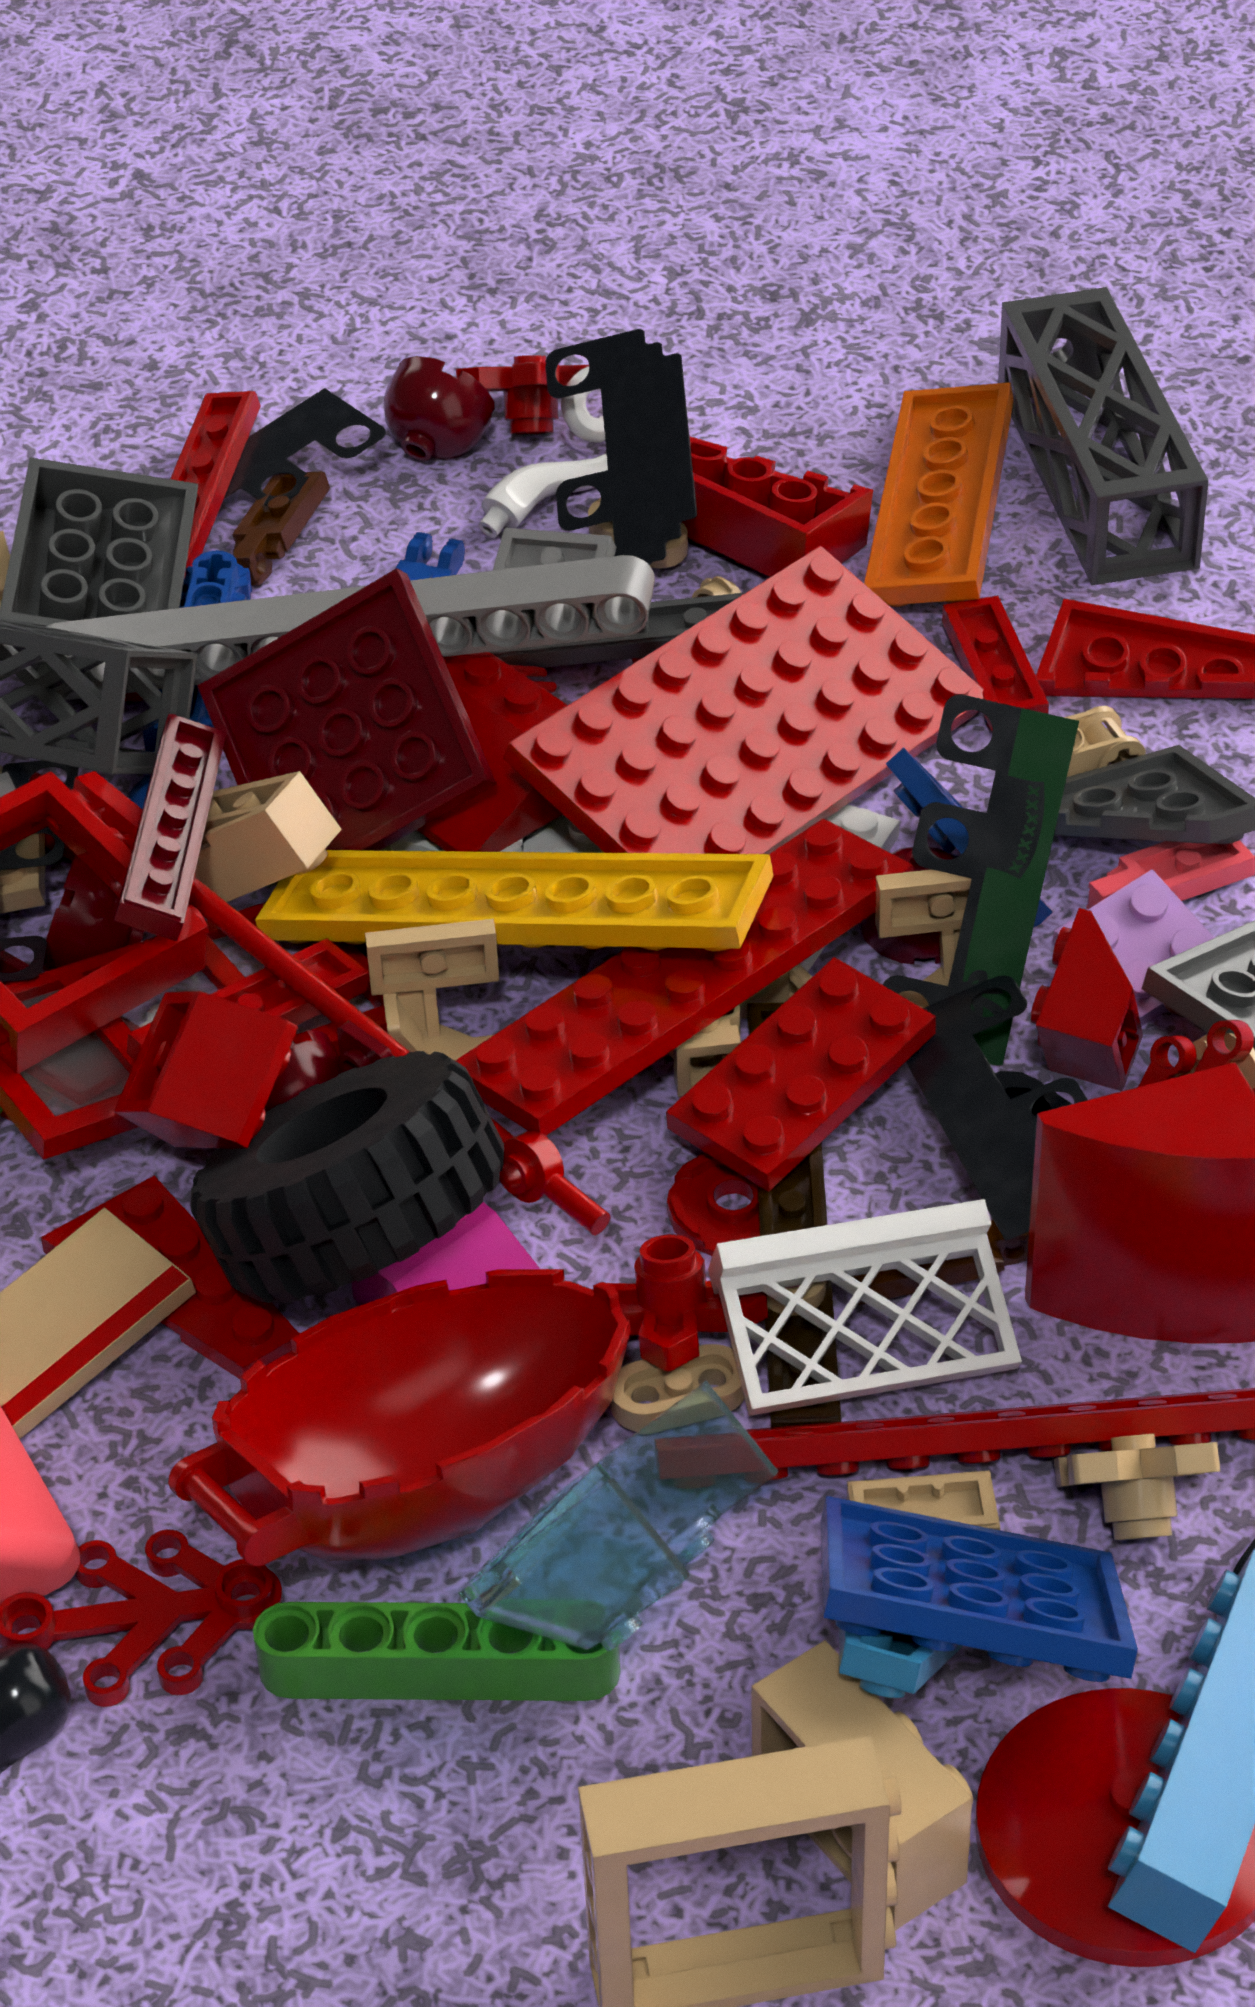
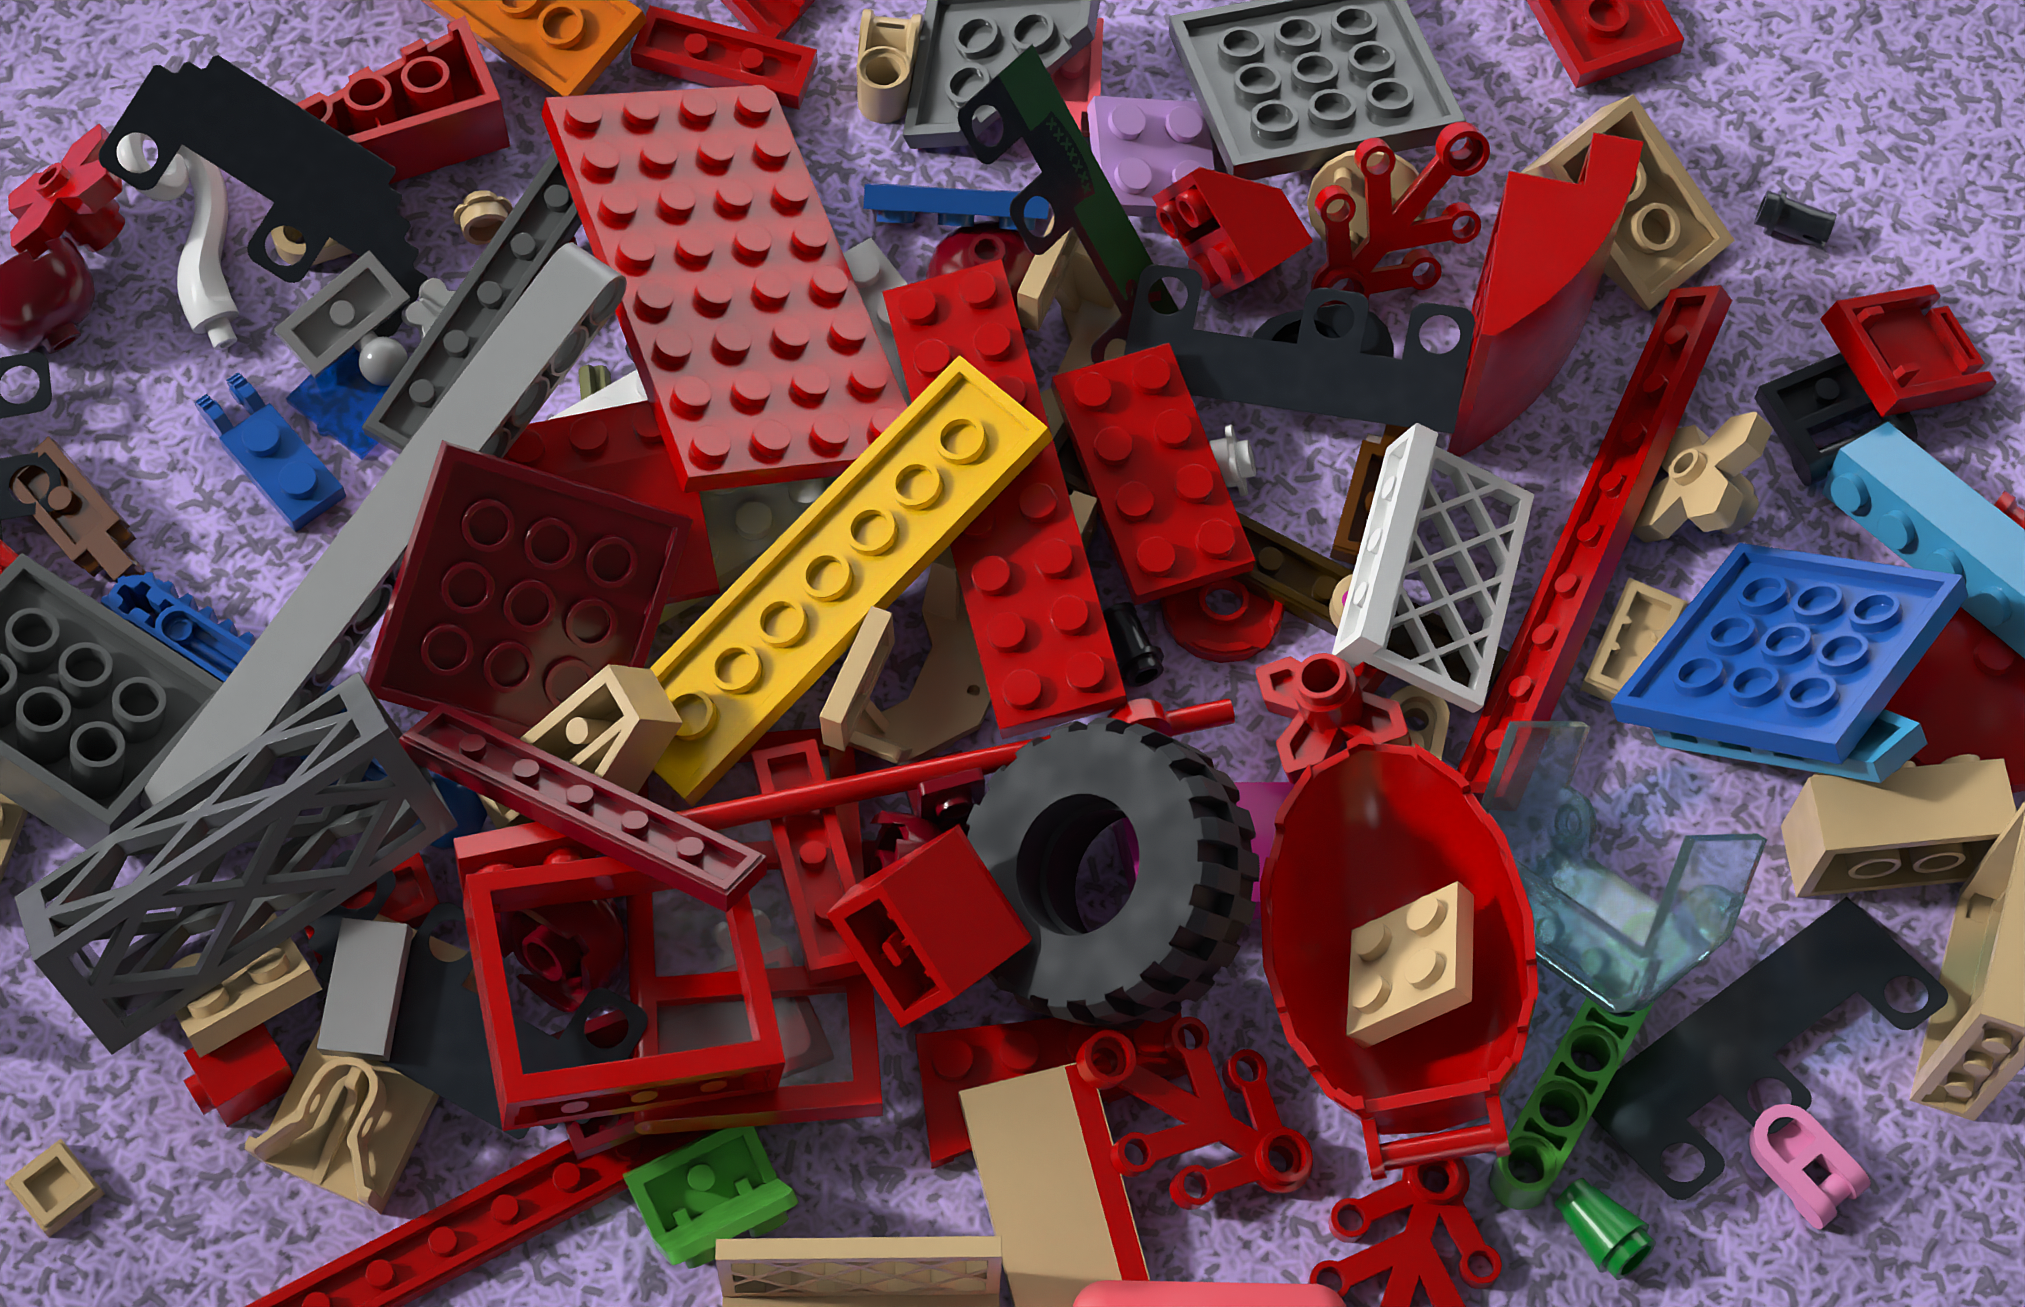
camera: 65 degrees left, 20 degrees up
(189, 1389) = (1204, 1116): none -> red plant
(270, 1745) = (1607, 1231): none -> green cone
(413, 1434) = (1411, 965): none -> tan plate
(454, 1859) = (1793, 1150): none -> bright pink plate
(527, 1771) = (1738, 1031): none -> black piece
(624, 1163) = (1136, 656): none -> black pin
(875, 1137) = (1234, 460): none -> white plate

